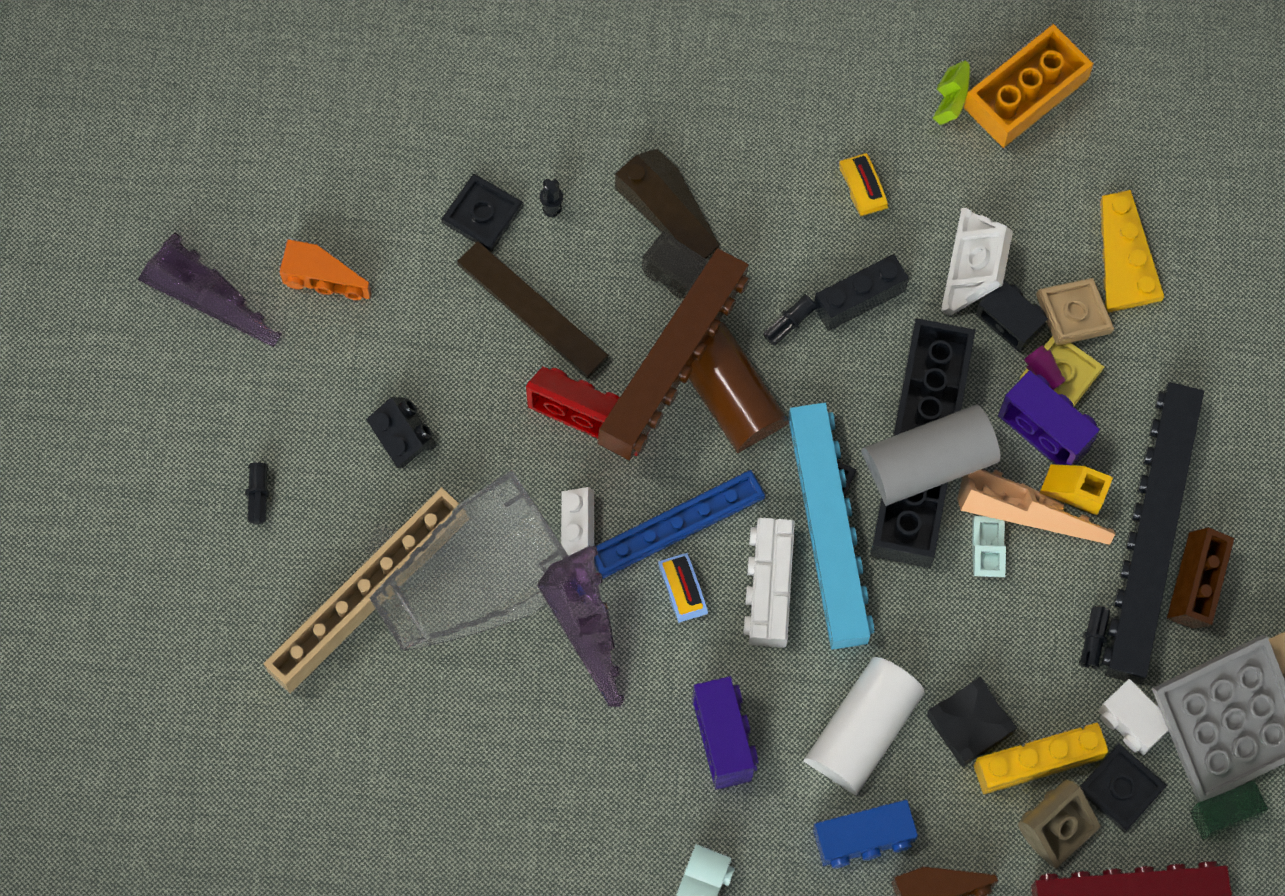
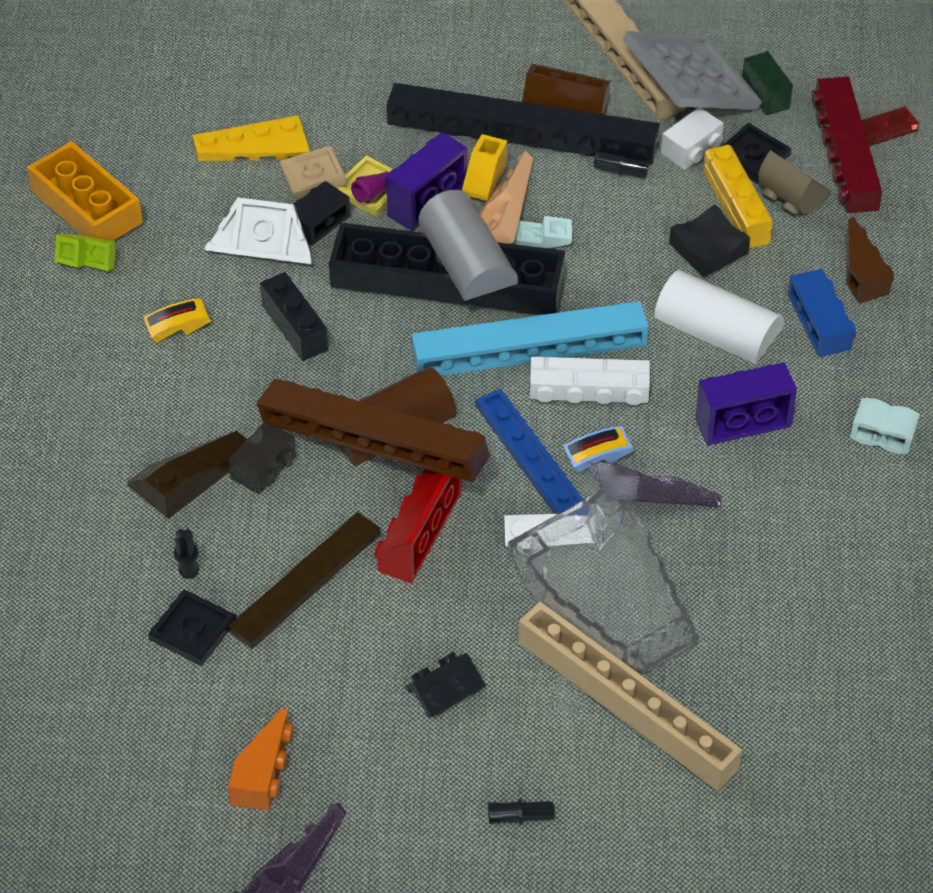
camera: 90 degrees left, 20 degrees down
(790, 320) = (319, 371): black axle -> none

